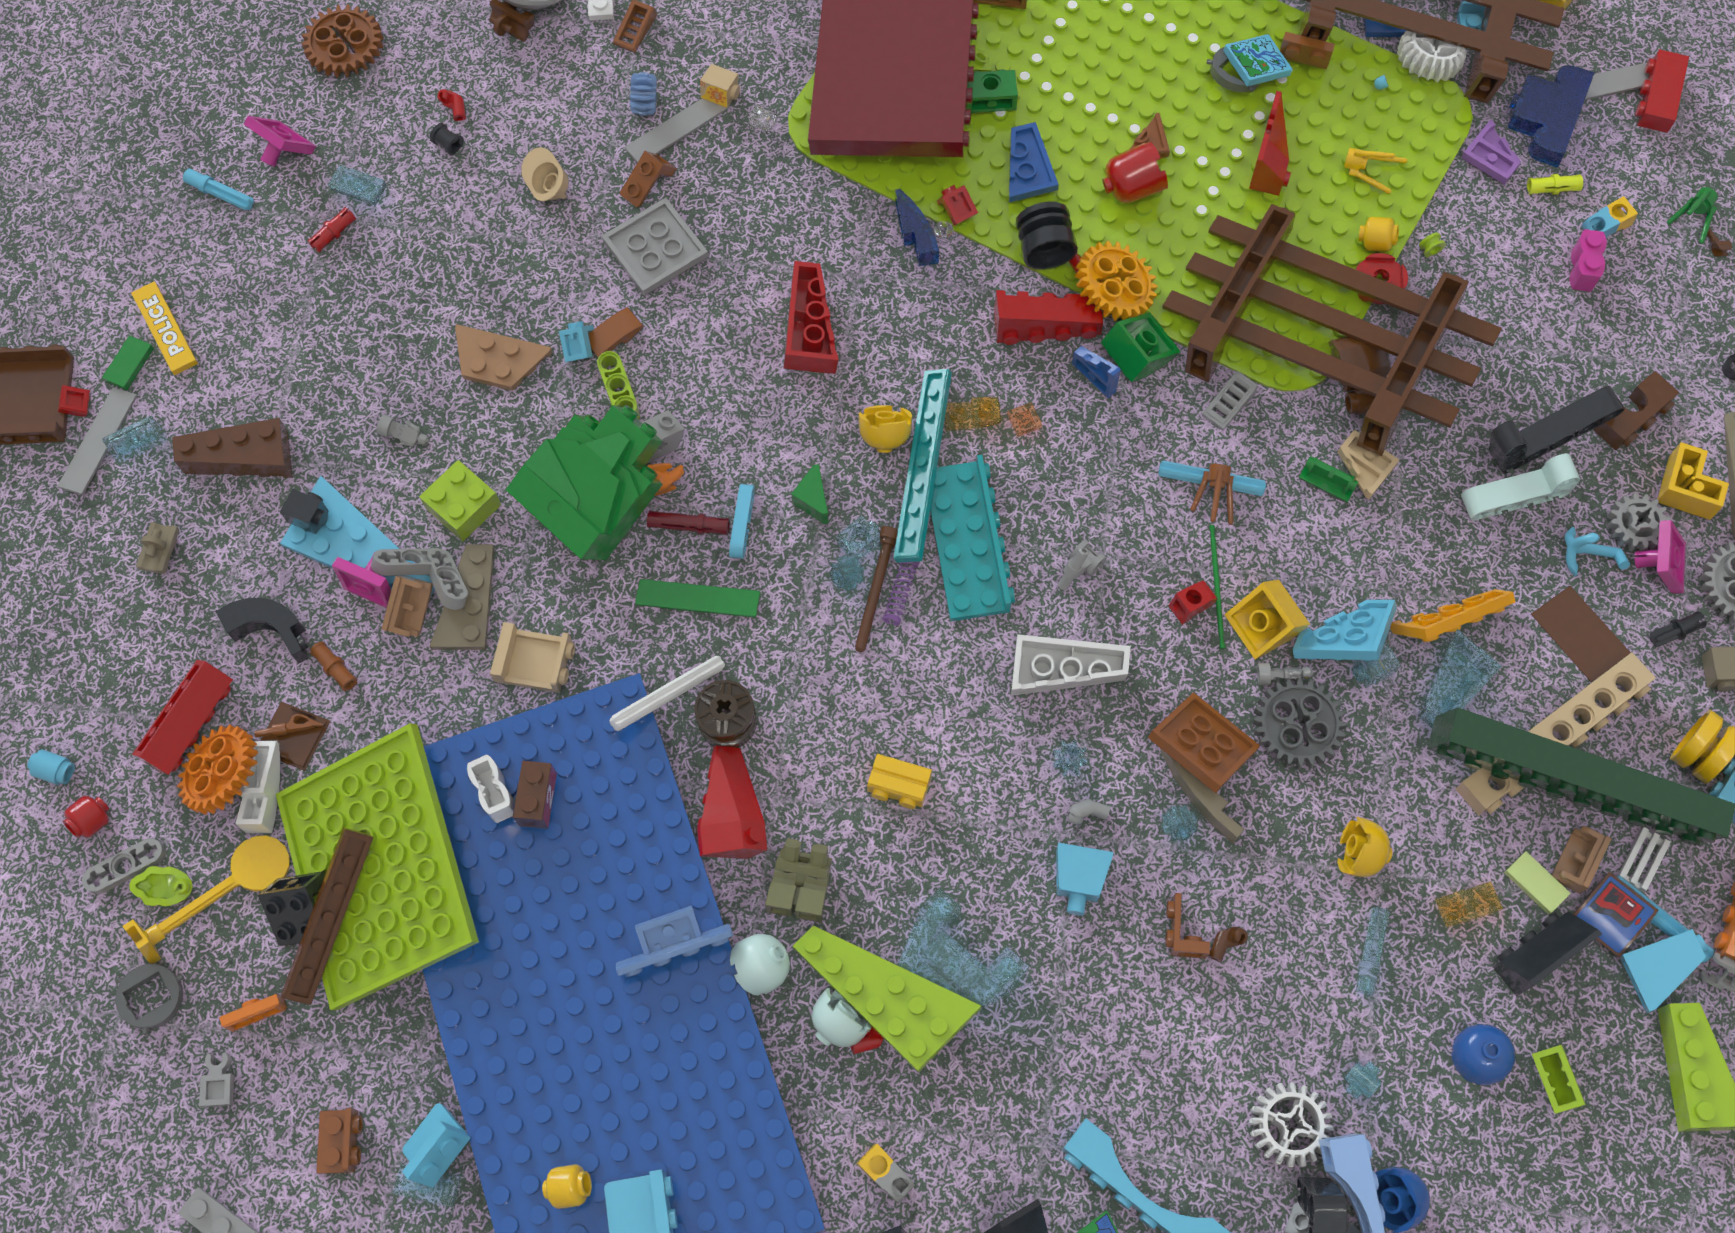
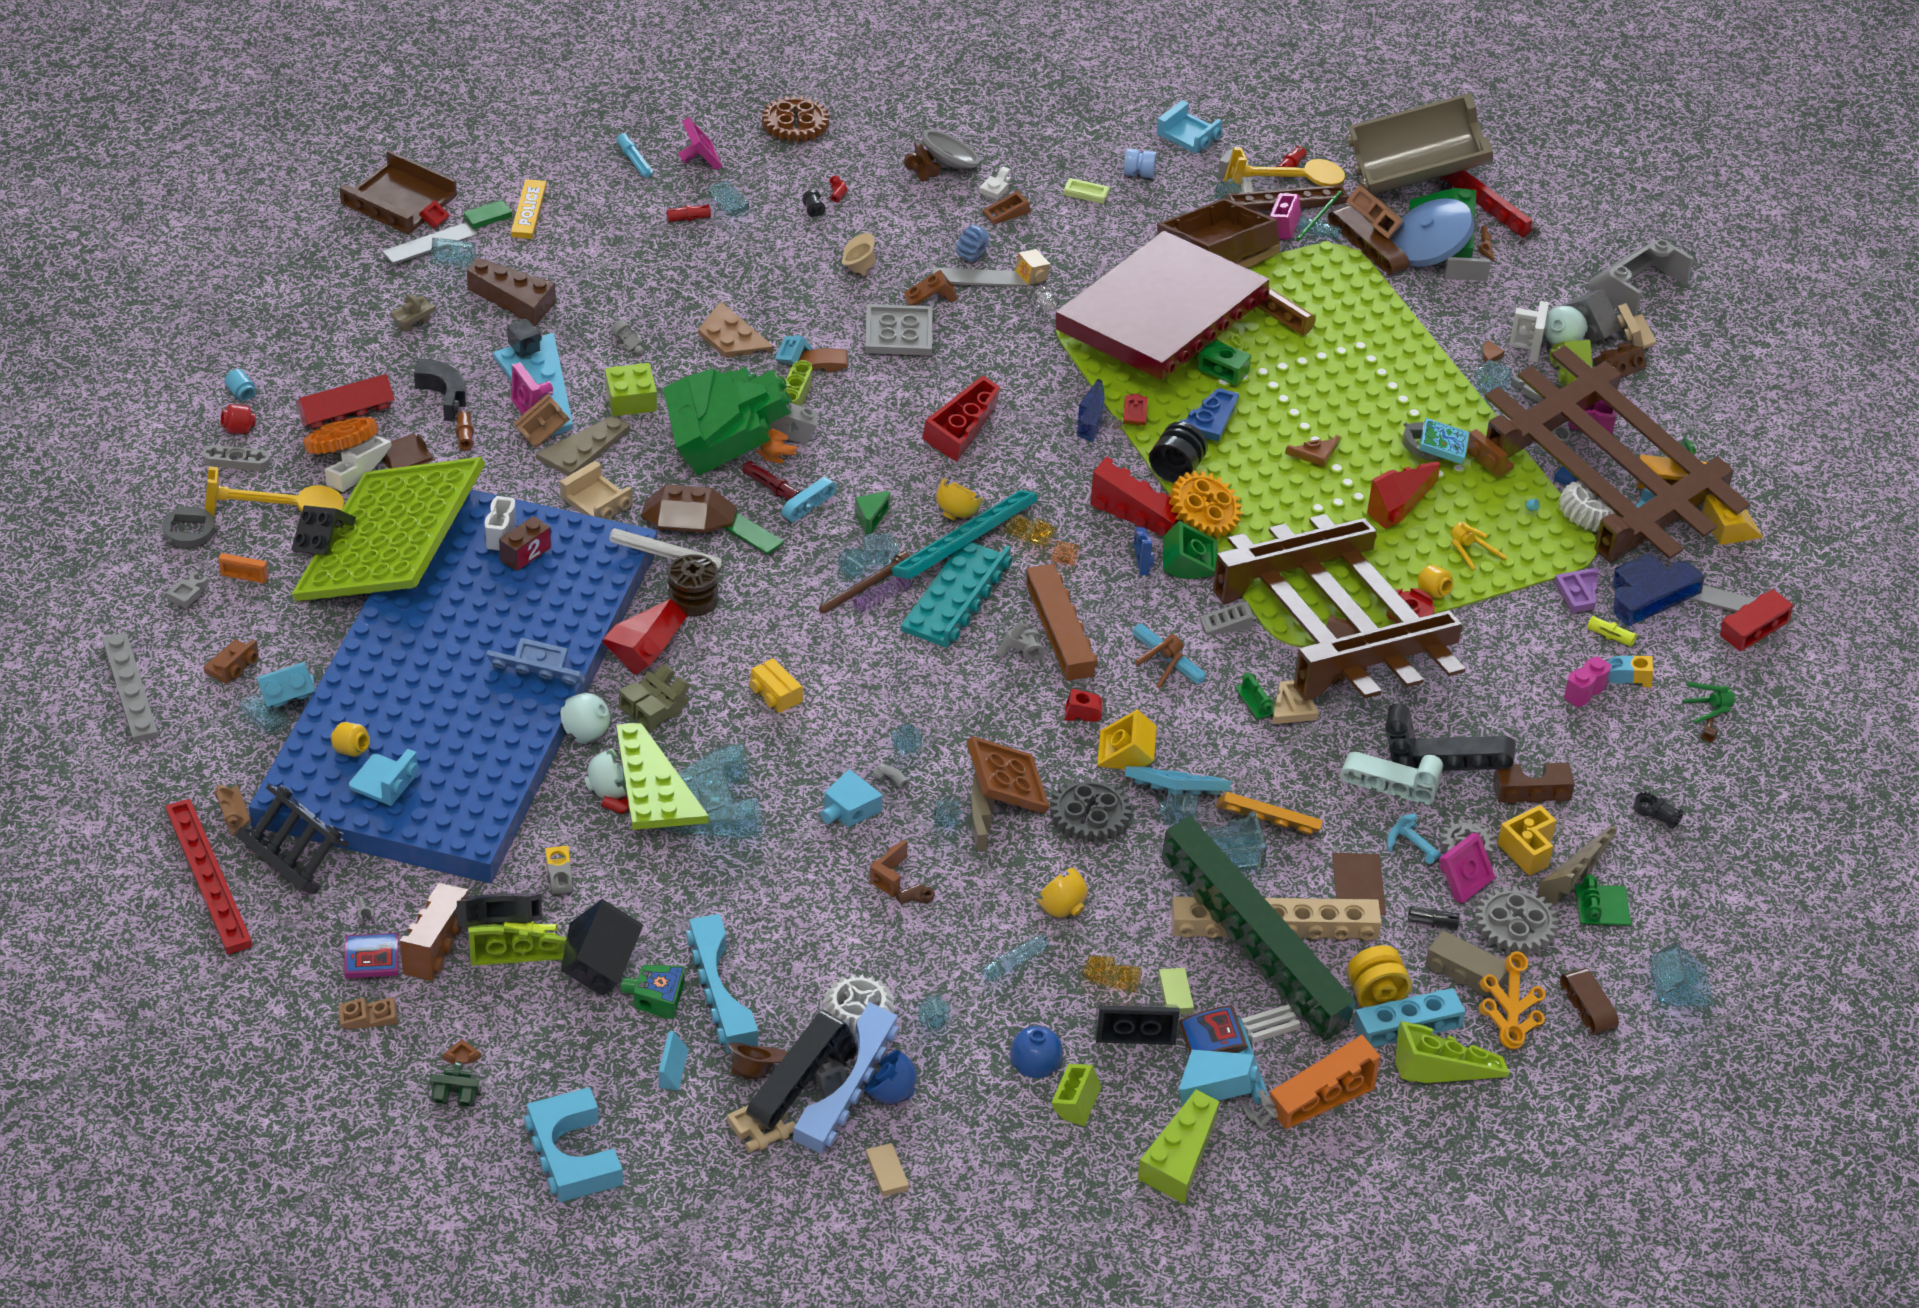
camera: 30 degrees right, 25 degrees down
(161, 886) = (249, 477): lime arm -> none
(291, 726) = (412, 445): dark orange hand -> none
(327, 916) = (335, 537): reddish brown tile -> none
(393, 563) = (581, 412): light grey beam -> none
(640, 620) = (688, 509): none -> reddish brown wedge
(1063, 663) = (953, 686): white wedge -> none
(1092, 511) = (1061, 622): none -> dark orange brick
(1135, 174) = (1280, 454): red cylinder -> none
(1217, 586) = (1112, 712): green piece -> none
(1266, 674) = (1095, 770): light grey piece -> none
(1432, 244) = (1478, 608): lime bush -> none
(1581, 858) = (1232, 993): medium nougat hinge -> none

